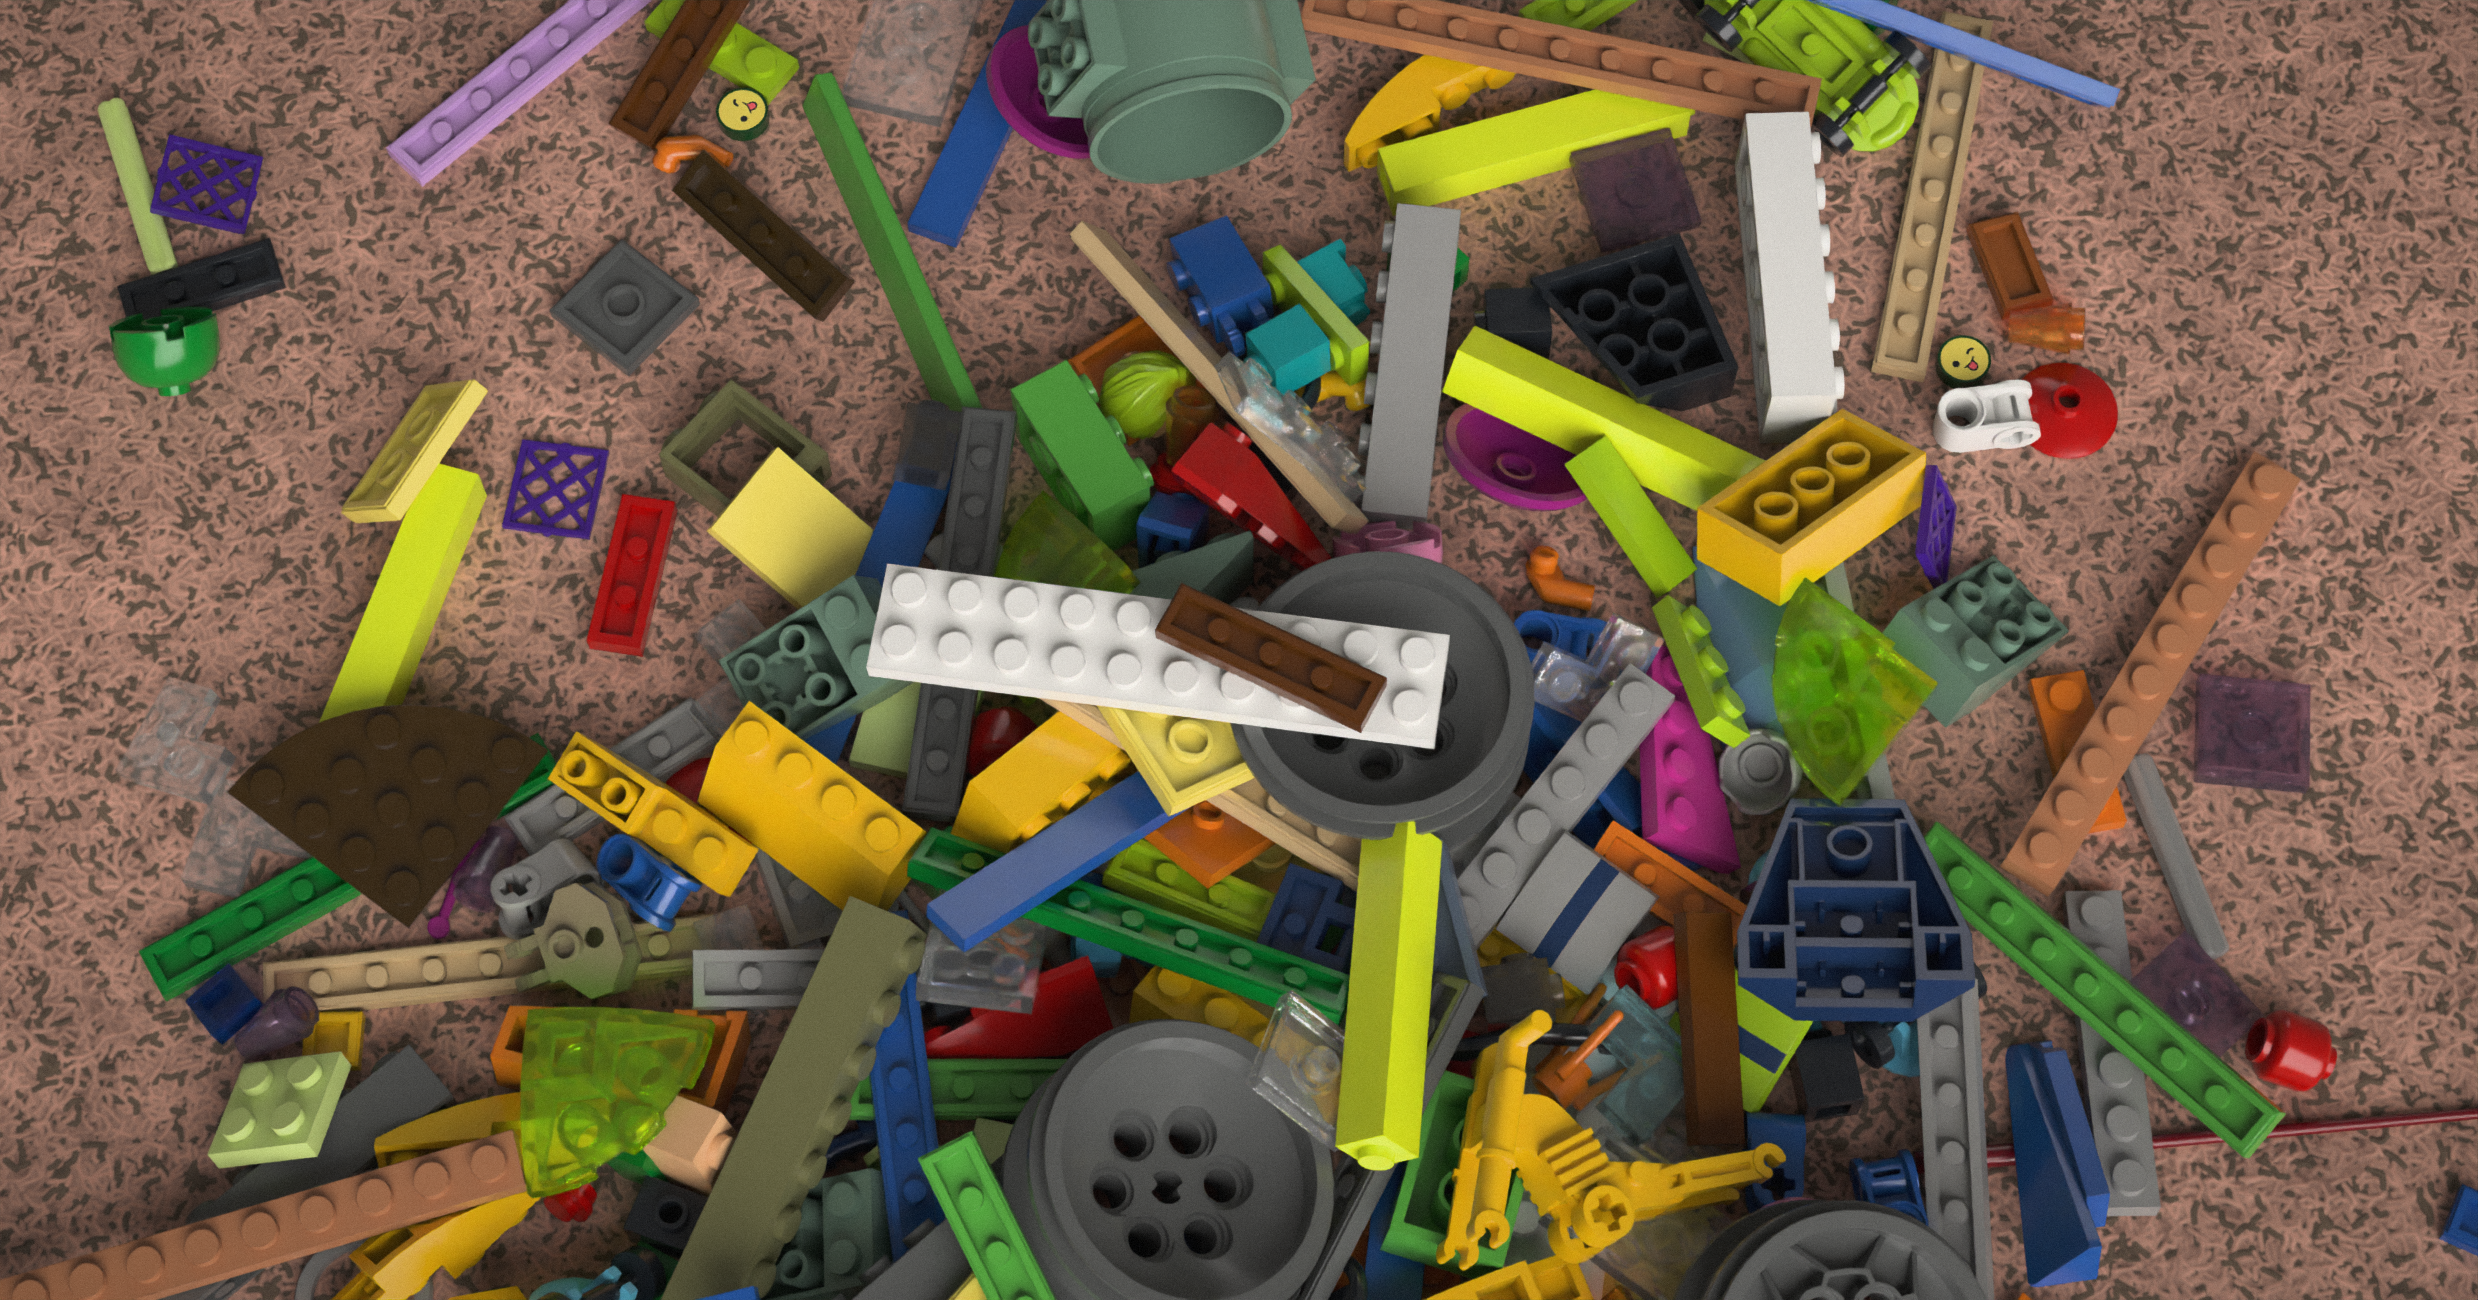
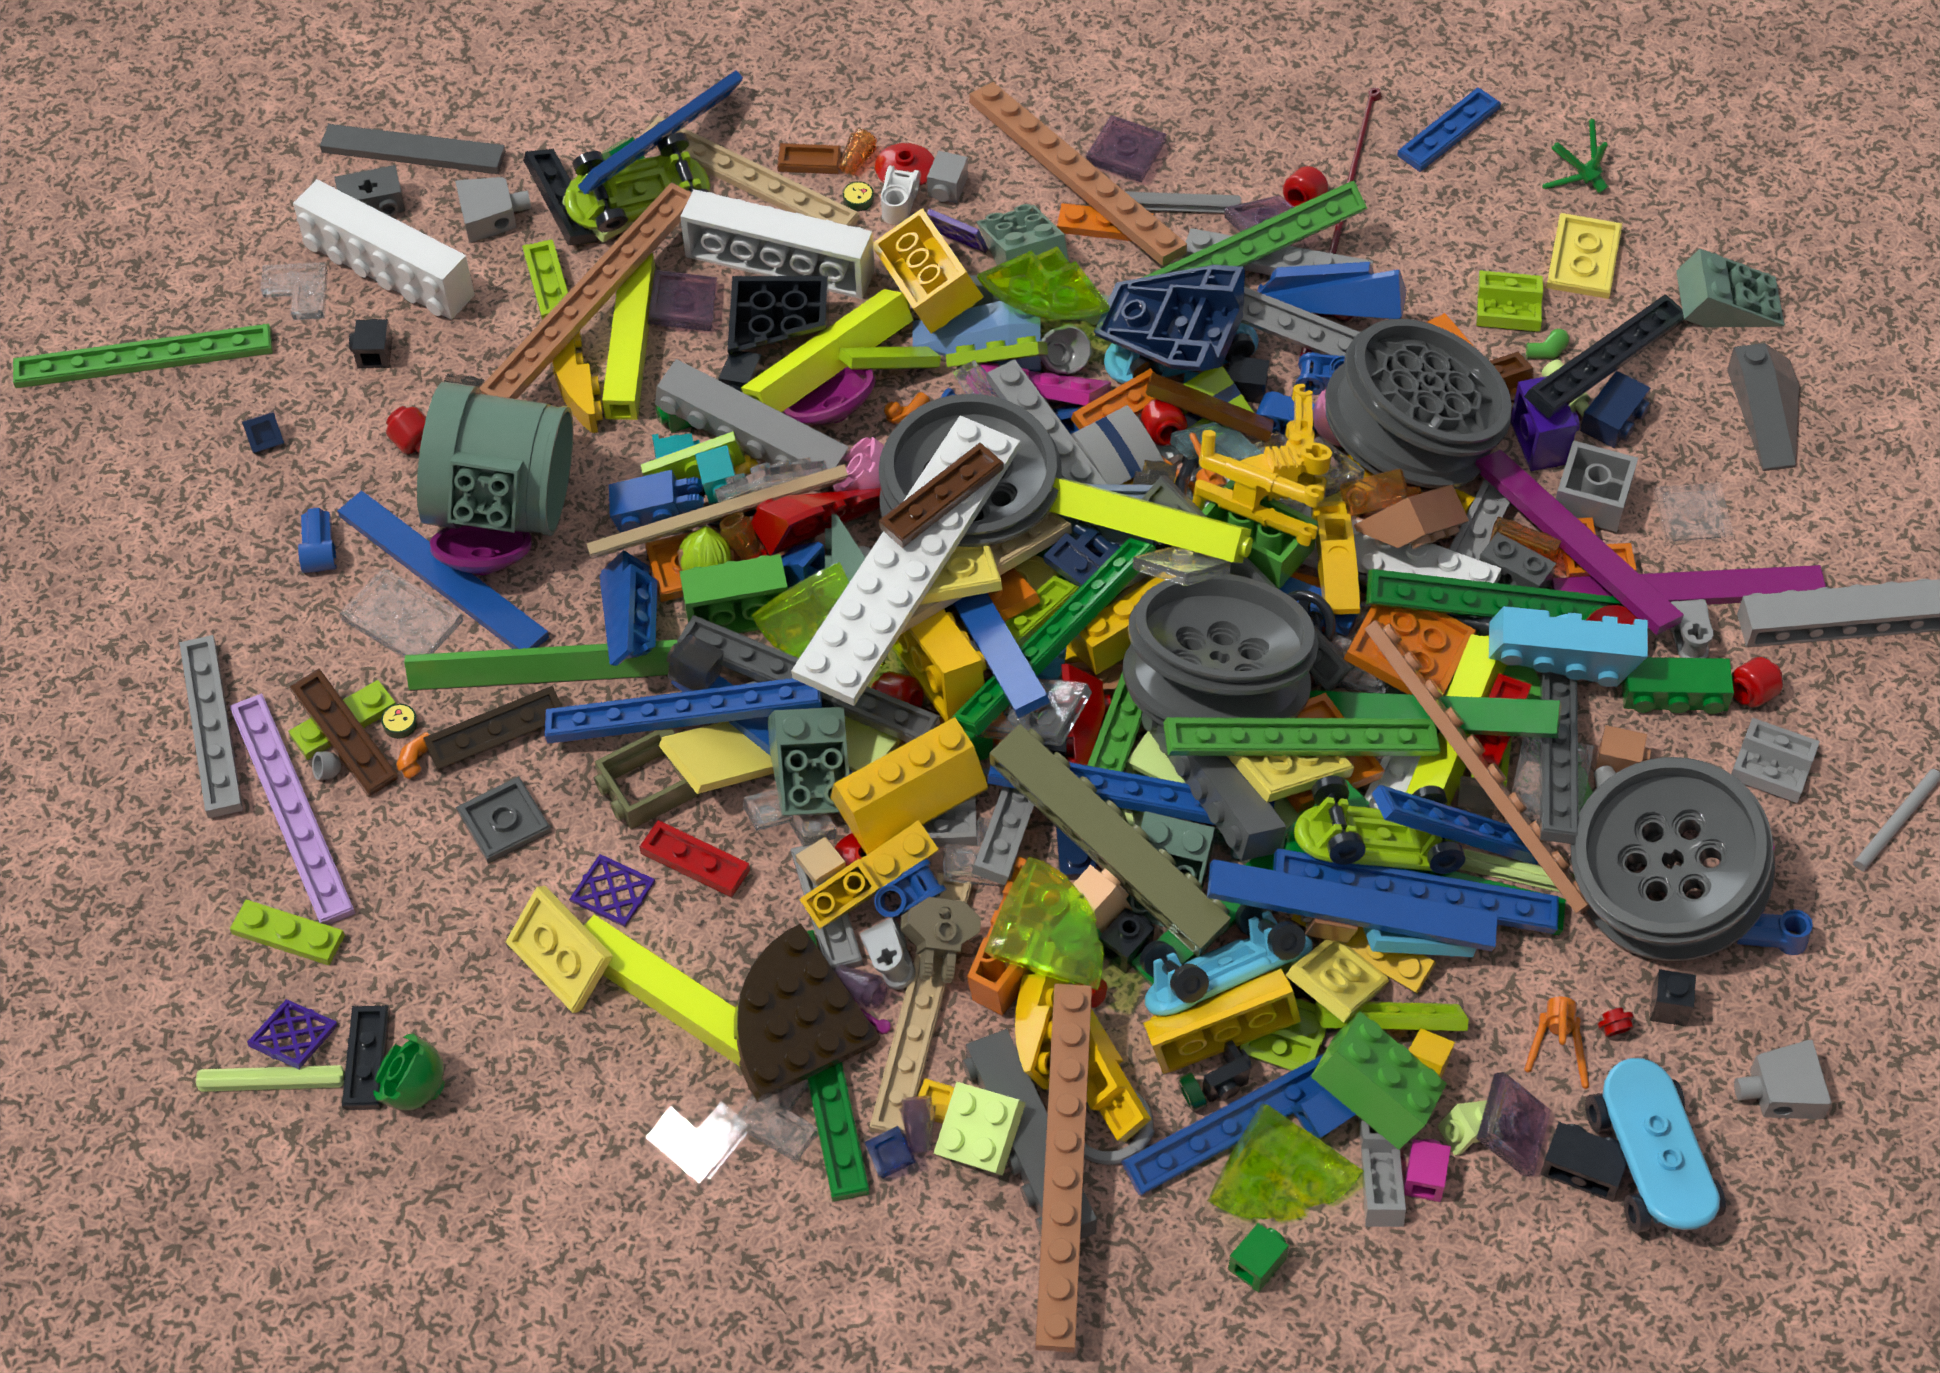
camera: 70 degrees left, 10 degrees down
(363, 116) = (287, 932): none -> lime plate
(635, 54) = (325, 765): none -> light grey hinge
(671, 742) = (820, 861): none -> tan tile
(839, 433) = (678, 710): none -> blue tile
(1011, 327) = (628, 607): none -> blue wedge
(2053, 478) = (947, 177): none -> light grey brick

